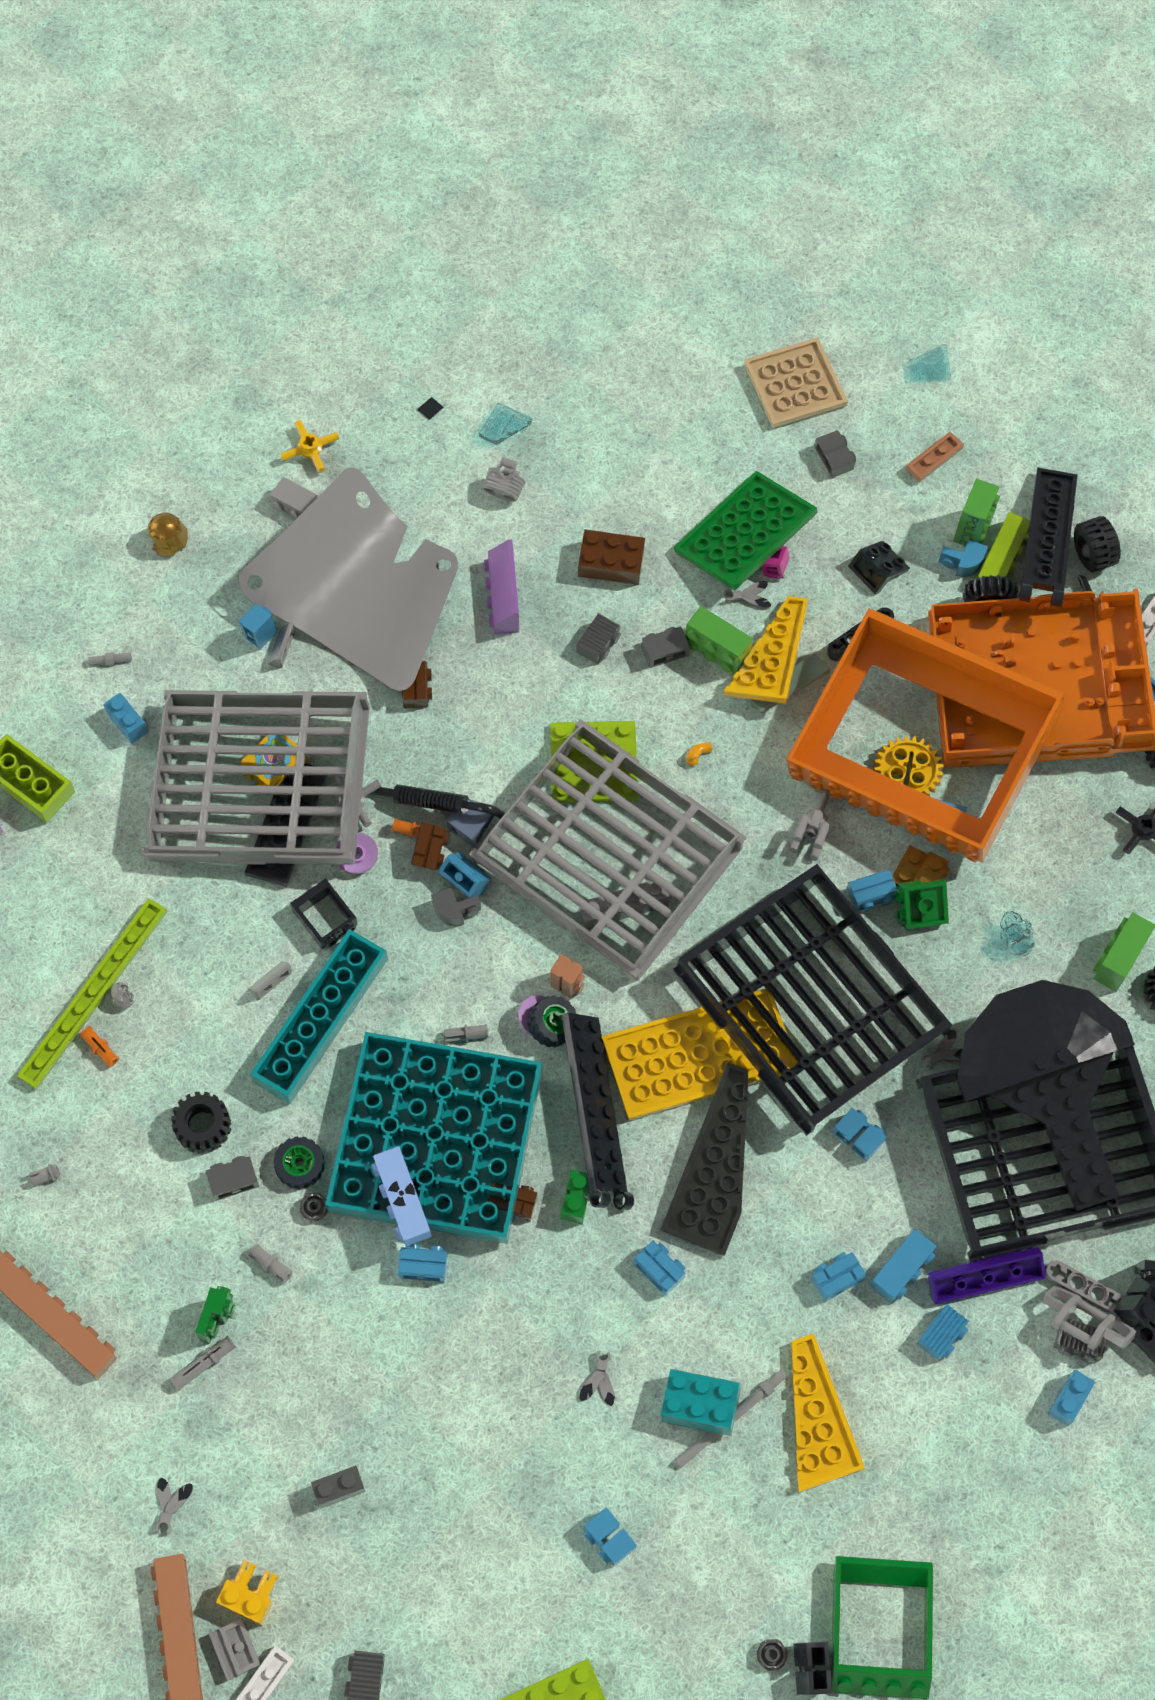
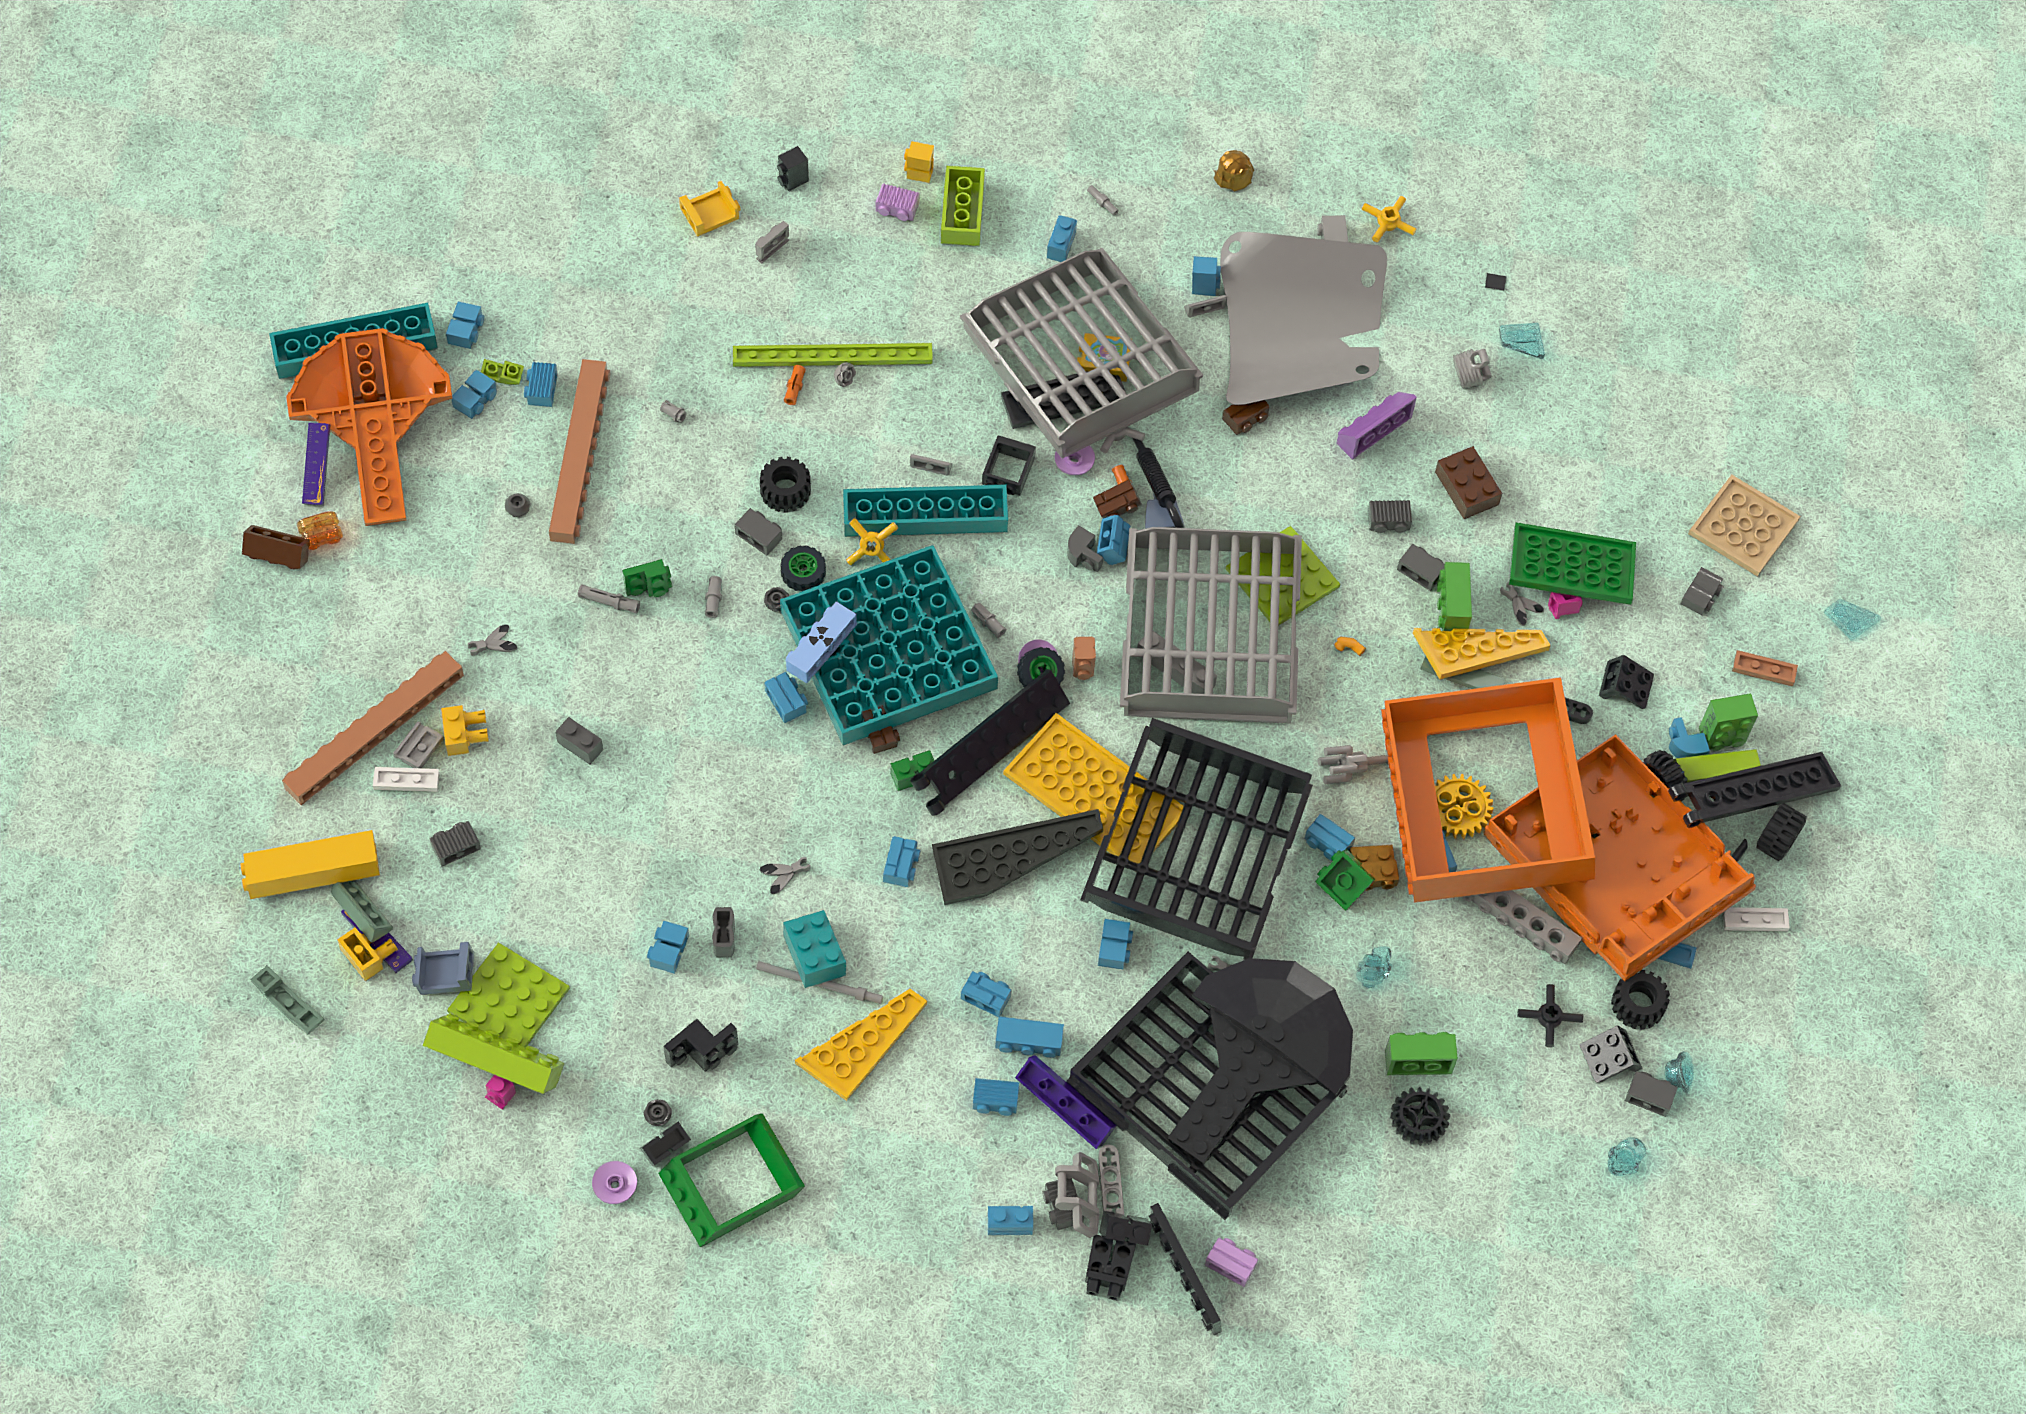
camera: 55 degrees right, 5 degrees down
(42, 1393) = (517, 510): none -> dark grey plate
(321, 1084) = (866, 536): none -> yellow bar
(636, 1479) = (723, 932): none -> dark grey brick
(736, 1570) = (701, 1045): none -> black bracket
(1087, 769) = (1532, 917): none -> light grey brick

